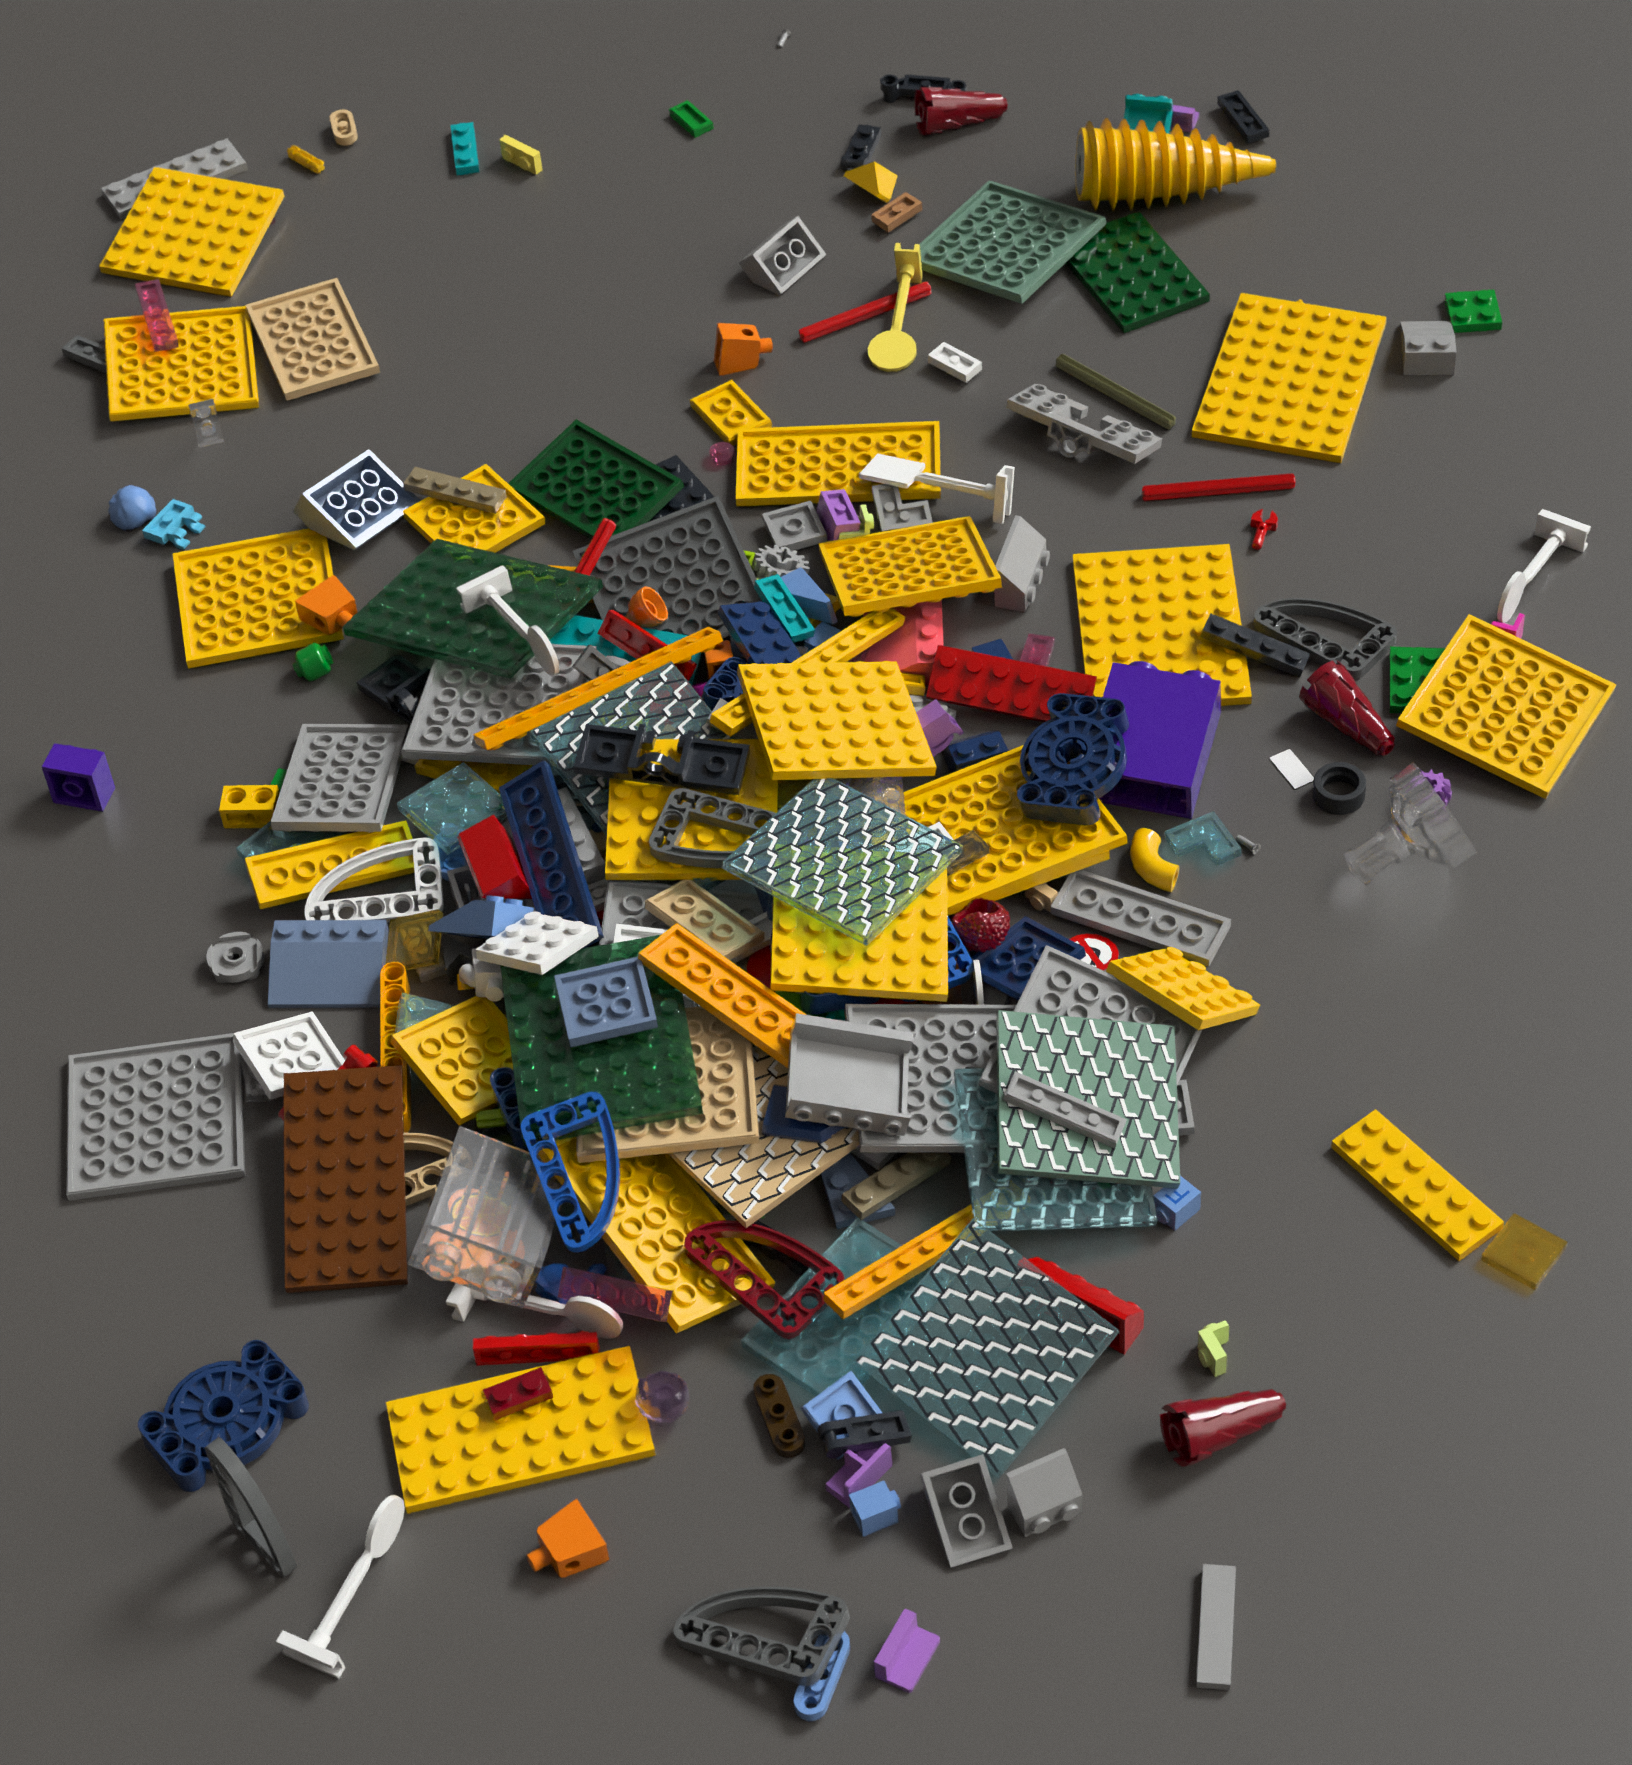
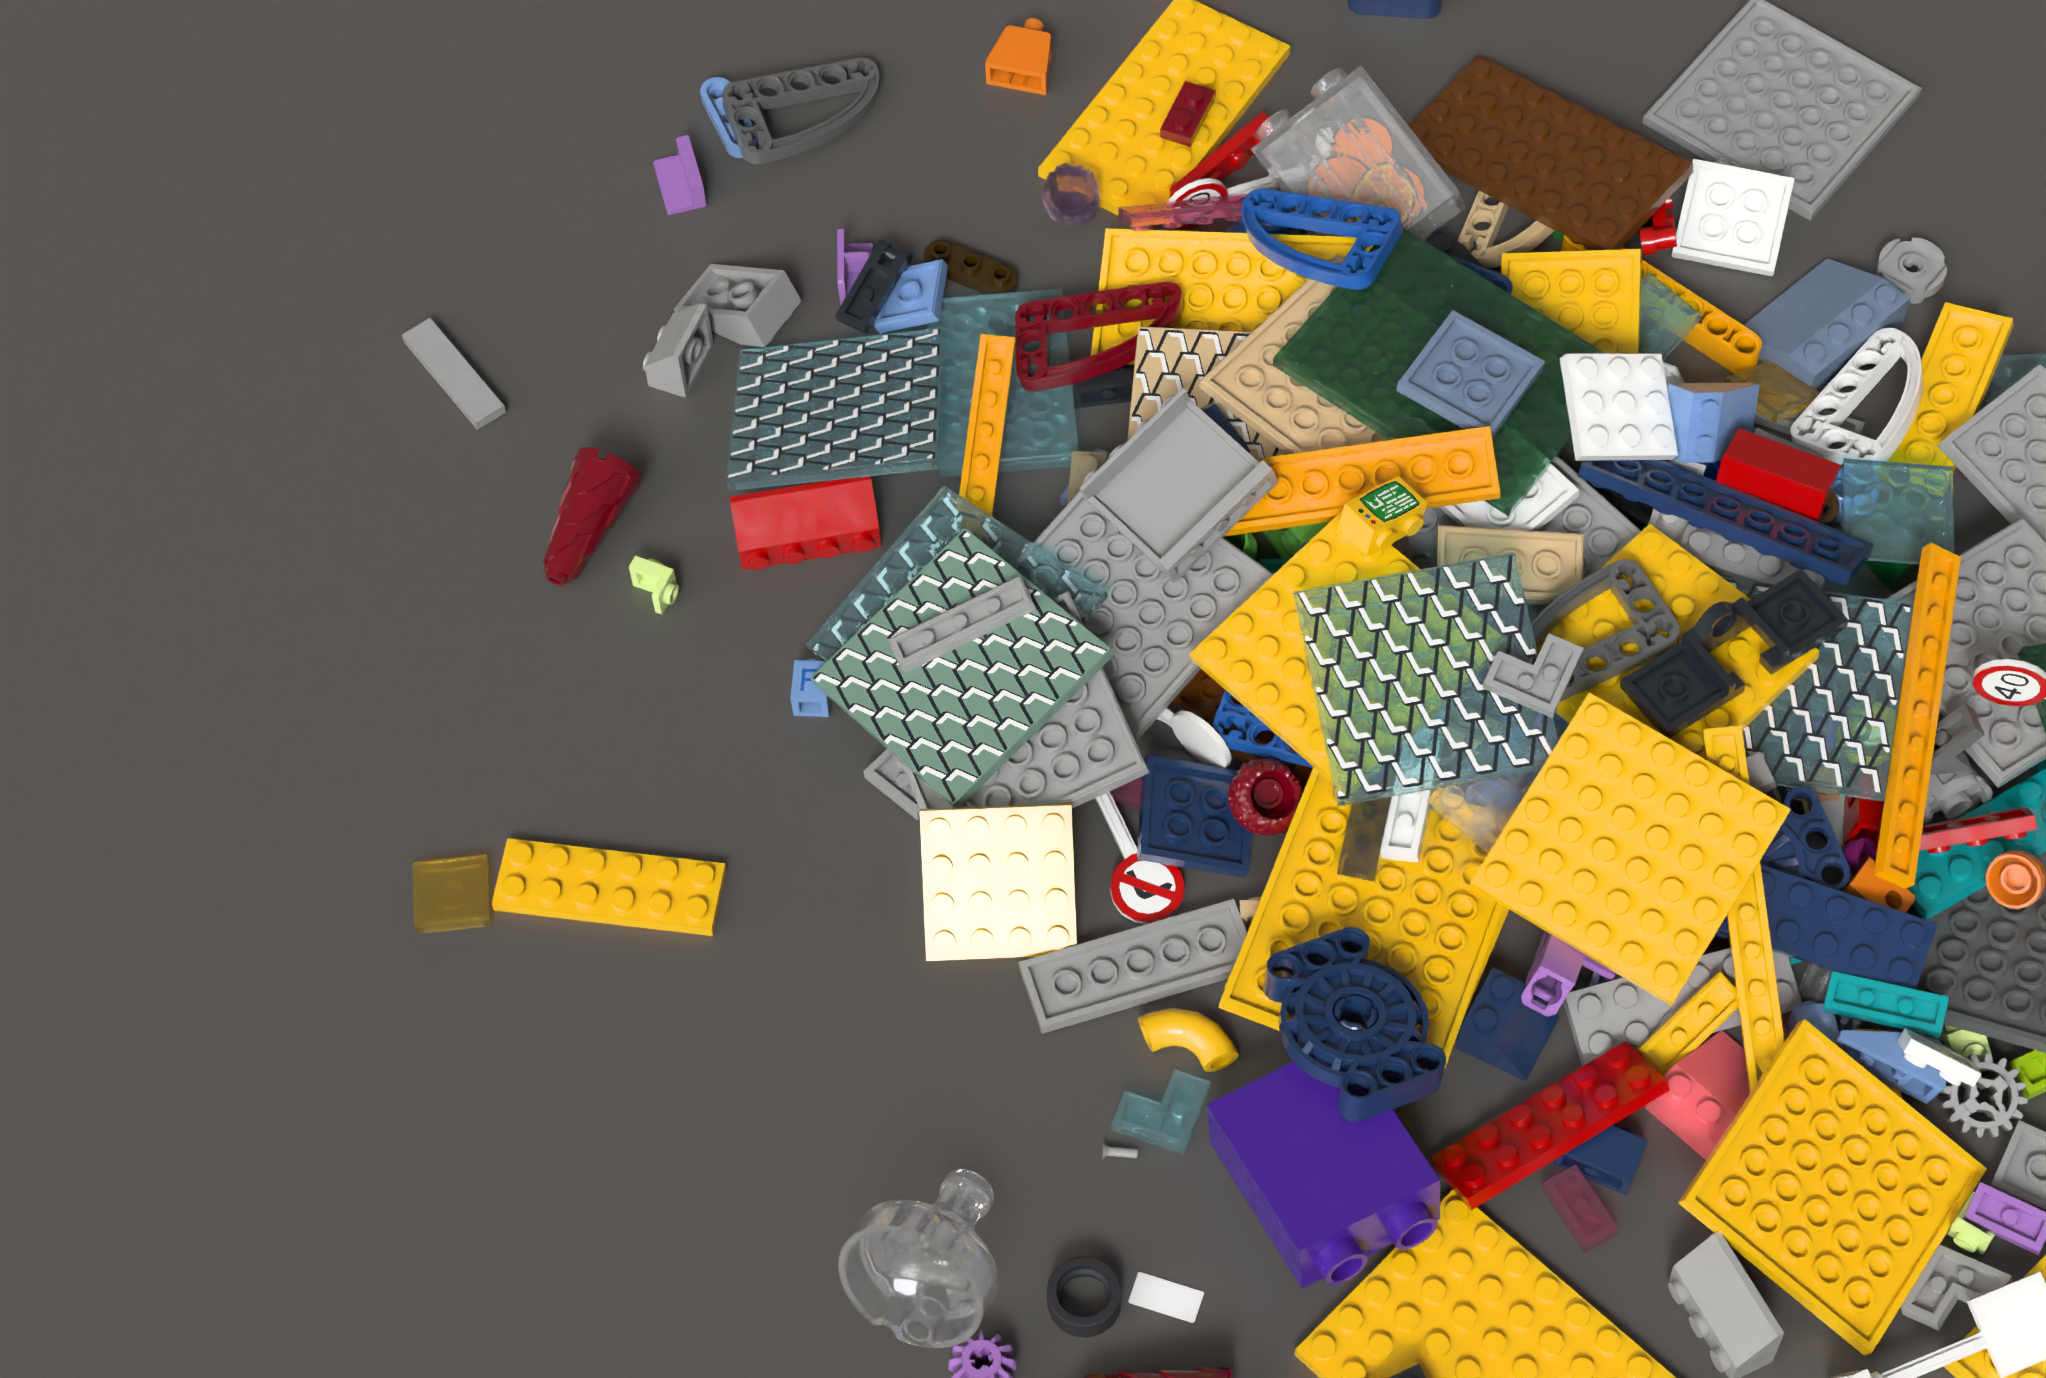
camera: 135 degrees right, 10 degrees up
(764, 946) = (1382, 516): none -> yellow brick
(791, 795) = (1539, 684): none -> light grey plate
(792, 567) = (1952, 1066): none -> white plate
(874, 1508) = (812, 250): medium blue brick -> none

